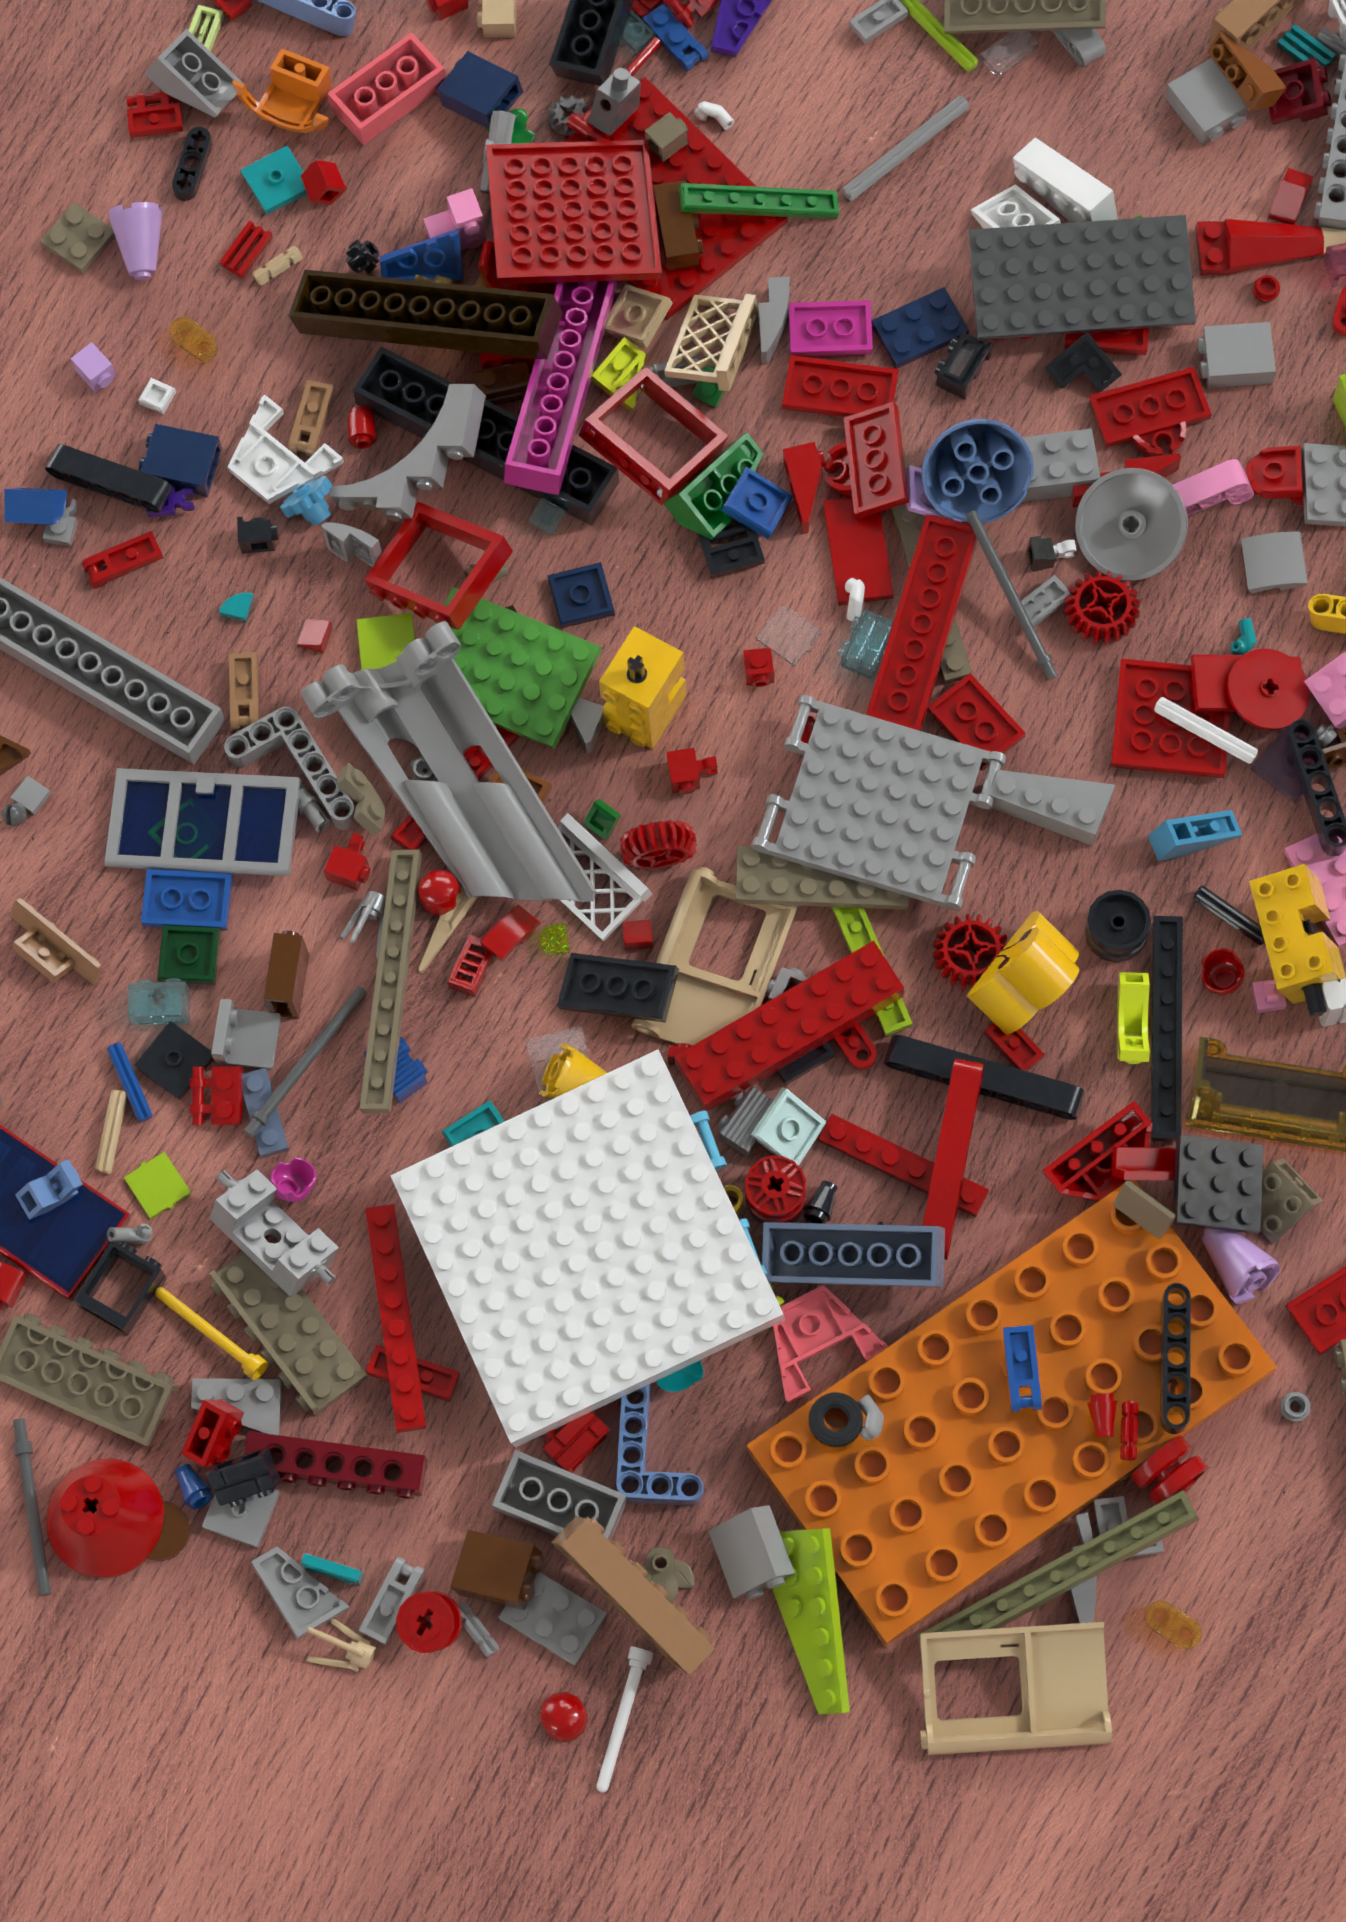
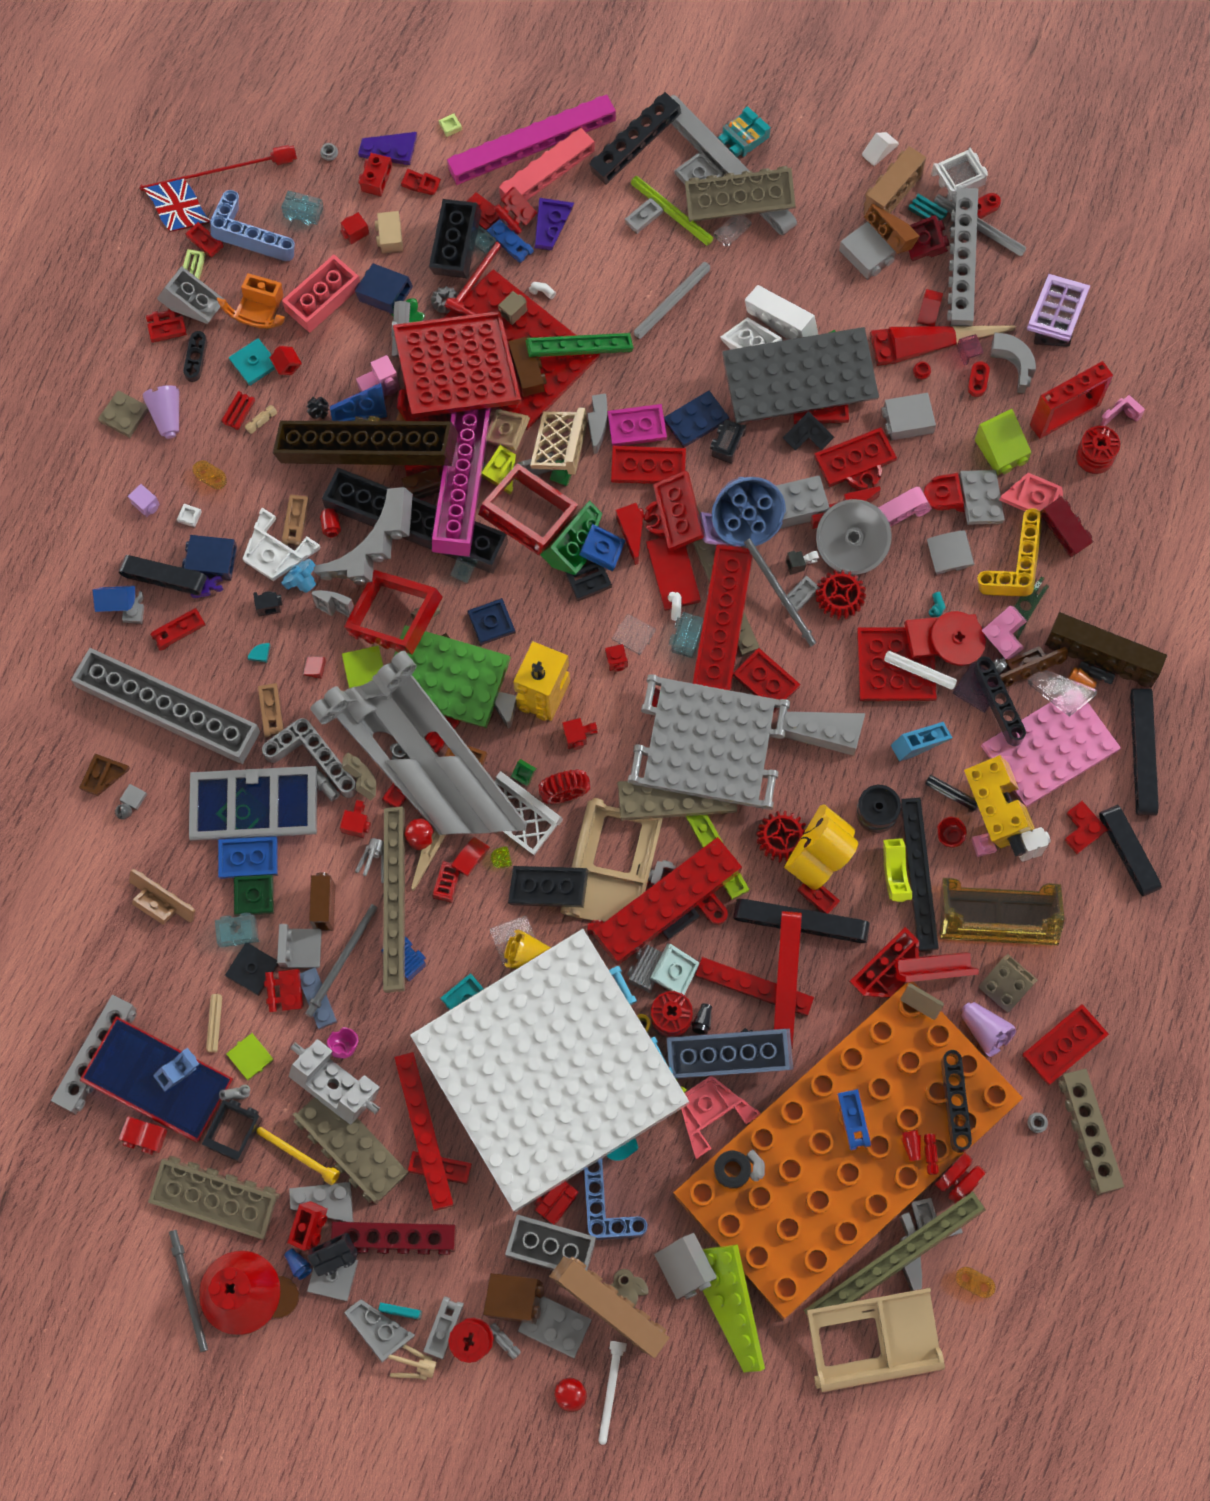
camera: 10 degrees left, 0 degrees up
(129, 1082) = (223, 987): blue axle -> none
(620, 94) = (480, 283): dark grey torso -> none
(637, 934) = (557, 848): red slope -> none
(1218, 1184) = (968, 977): black plate -> none

